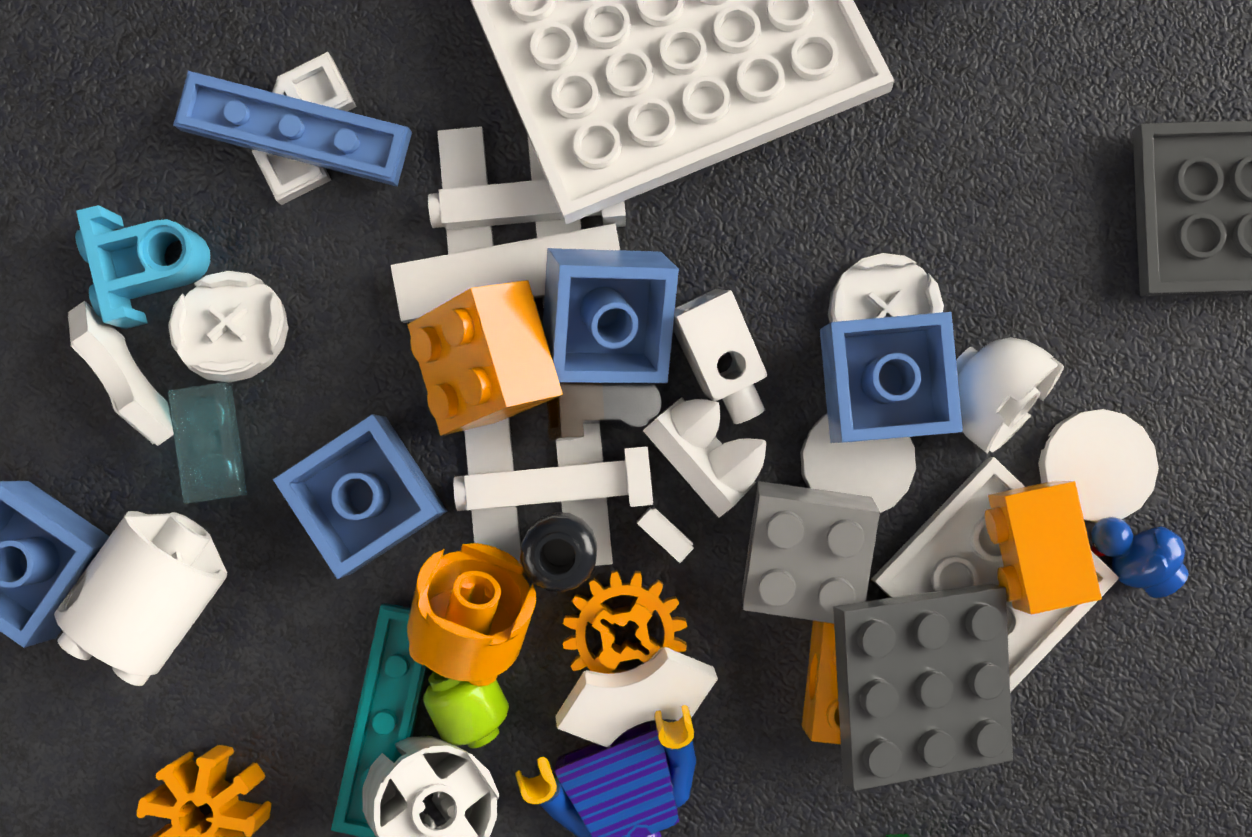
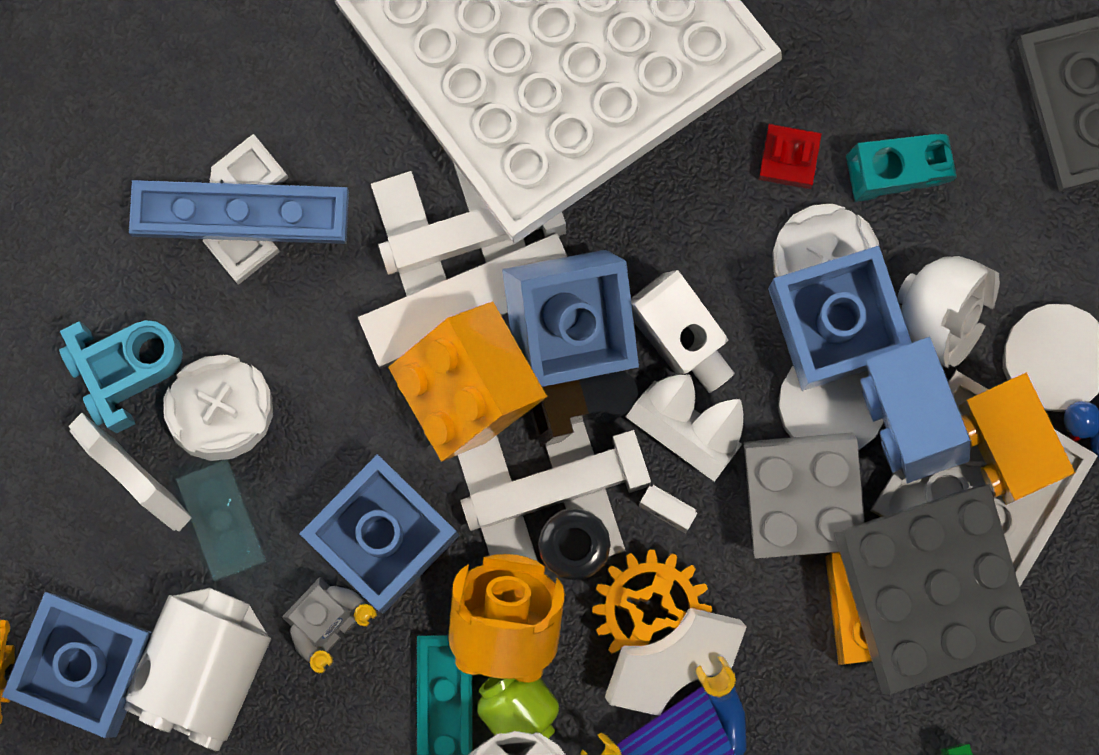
camera: 10 degrees left, 5 degrees down
(280, 571) = (320, 616): none -> light grey piece
(872, 197) = (790, 156): none -> red tile
(950, 495) = (918, 410): none -> medium blue brick
(983, 231) = (900, 165): none -> teal leg

